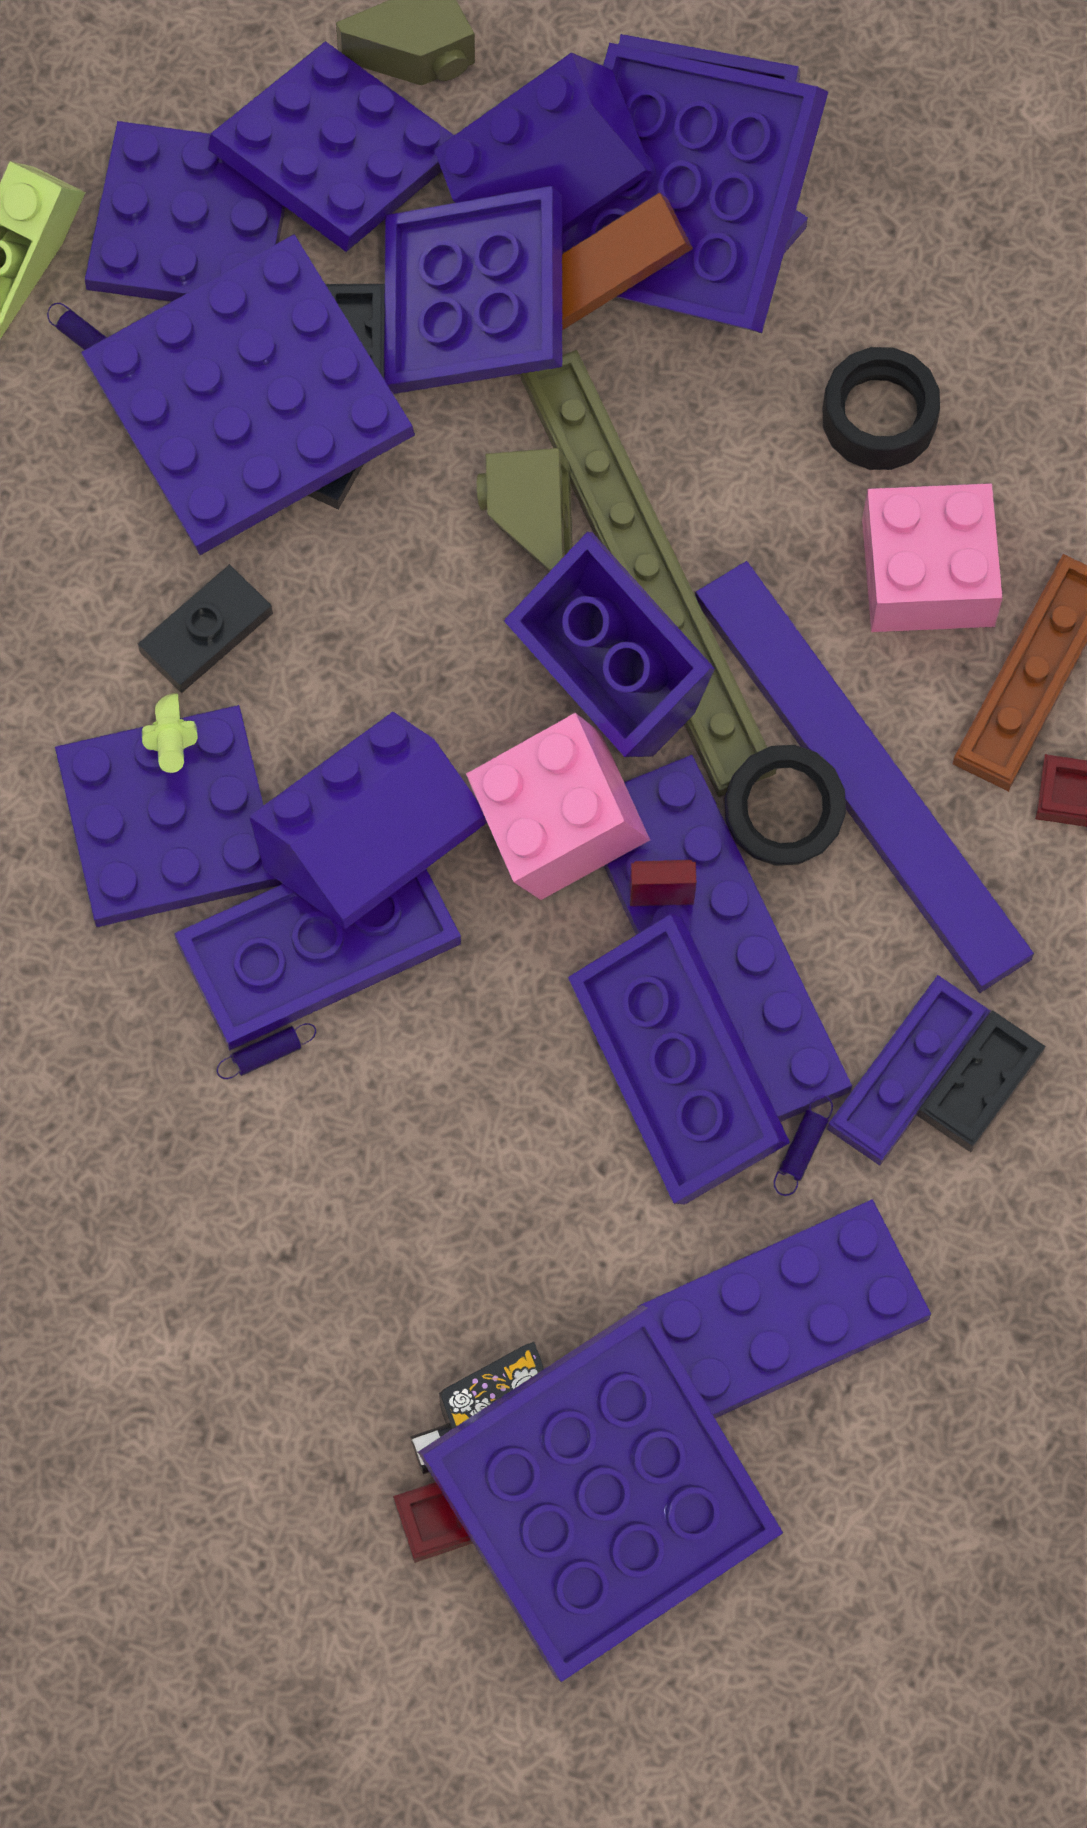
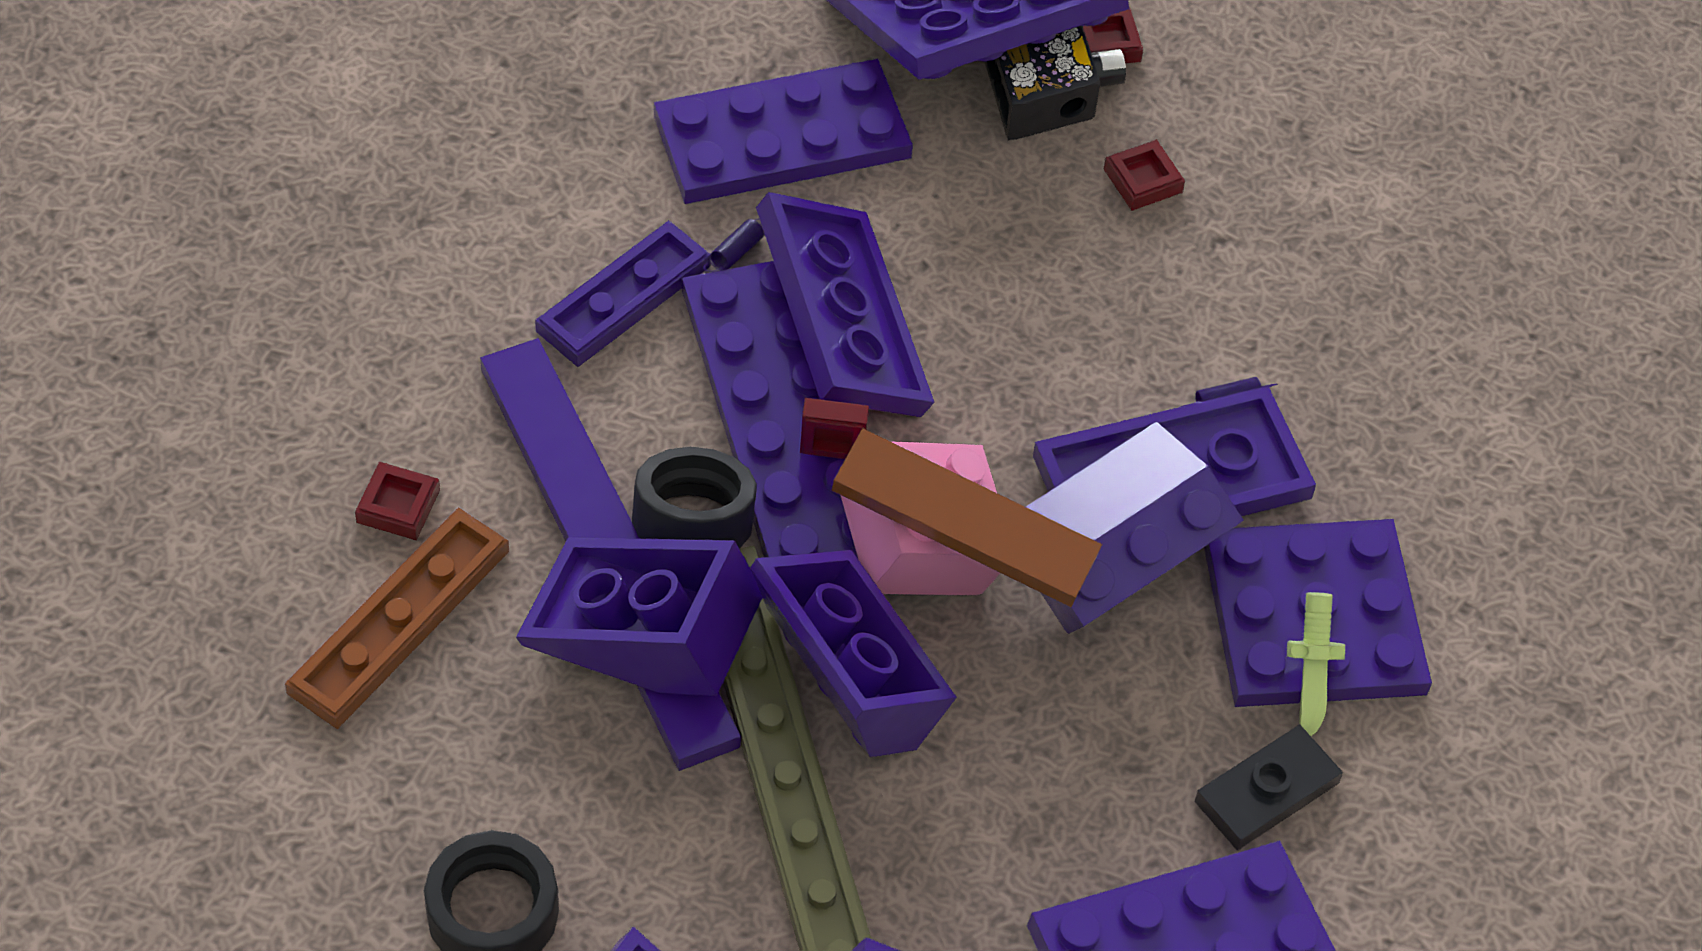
camera: 175 degrees left, 15 degrees down
(377, 1324) = (1144, 175): none -> dark red tile
(519, 745) = (966, 517): none -> dark orange tile
(530, 501) = (906, 837): olive slope -> none
(809, 670) = (646, 610): none -> dark purple slope
(931, 557) = (480, 720): bright pink brick -> none
(981, 1081) = (558, 264): black plate -> none

